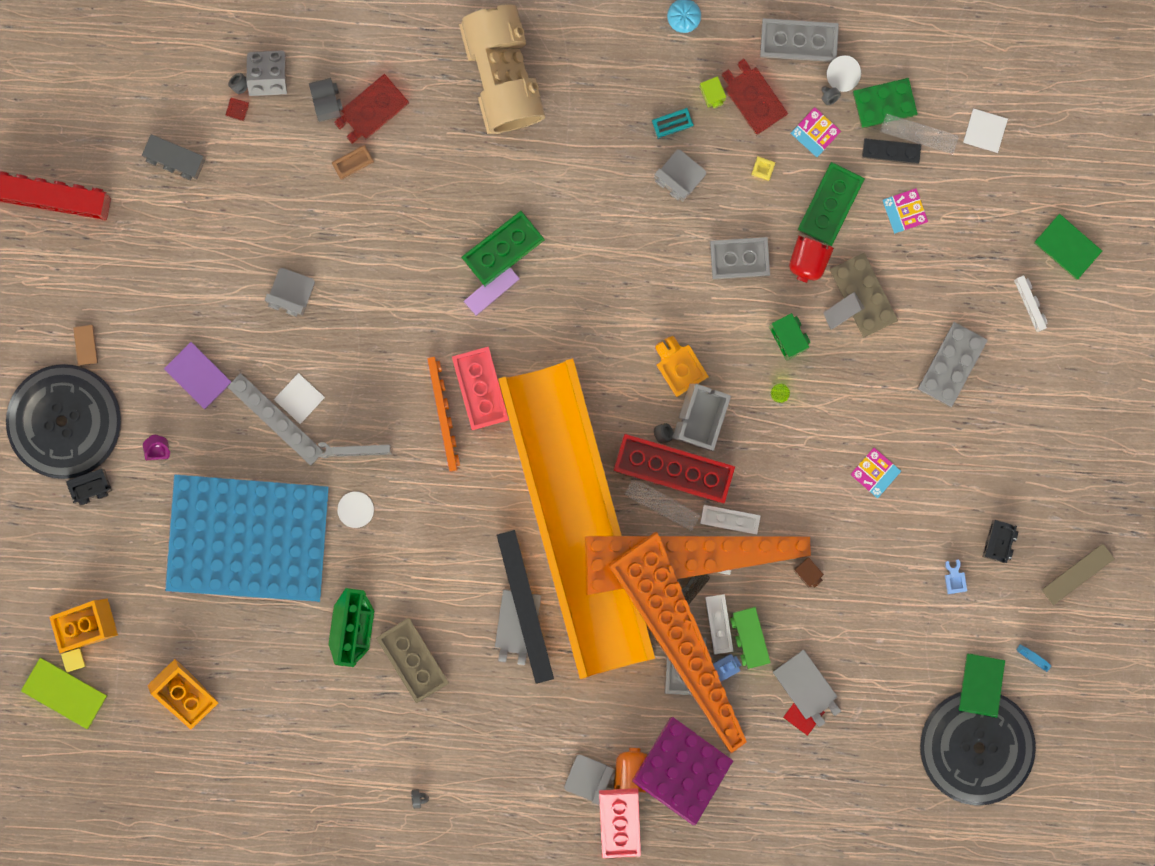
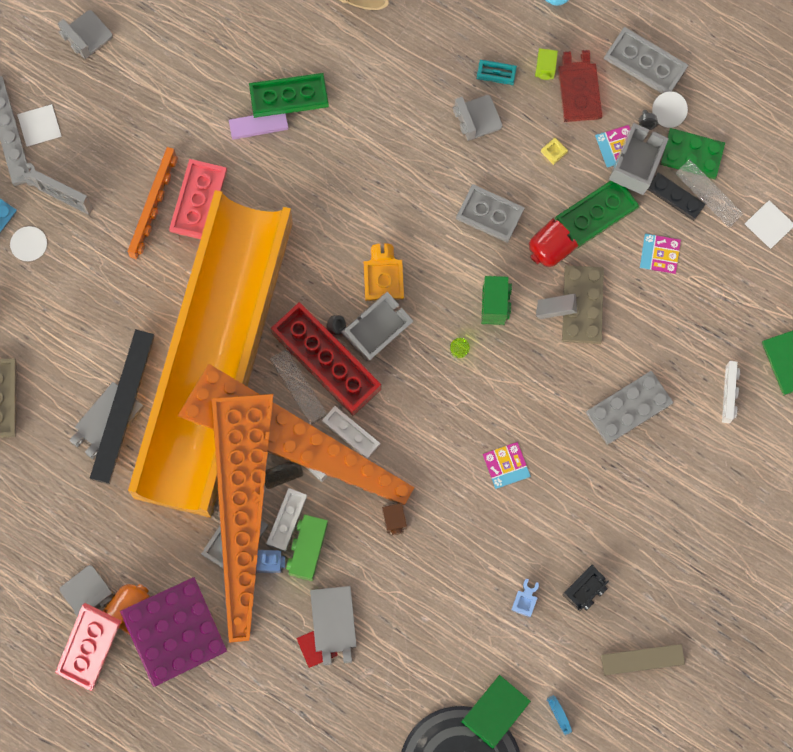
camera: 30 degrees right, 10 degrees down
(843, 138) = (638, 159): none -> light grey piece

